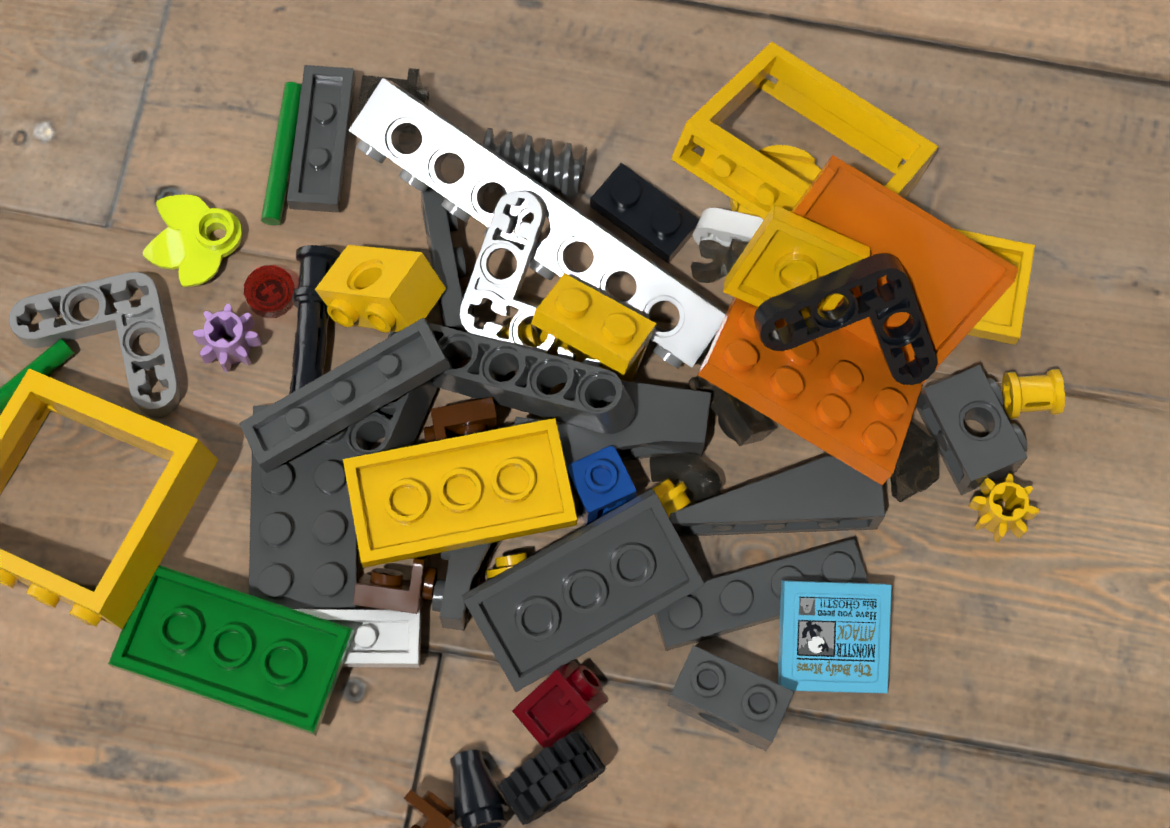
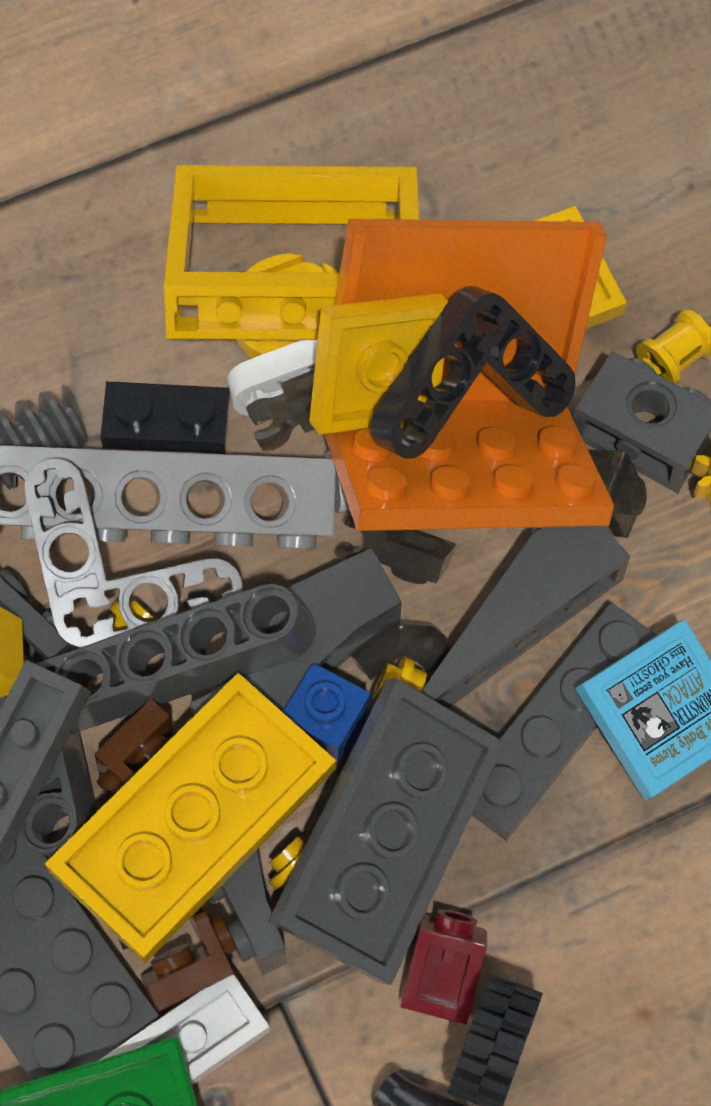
camera: 35 degrees left, 5 degrees down
(593, 327) = (207, 556): yellow bracket -> none
(730, 698) = (610, 840): dark grey brick -> none

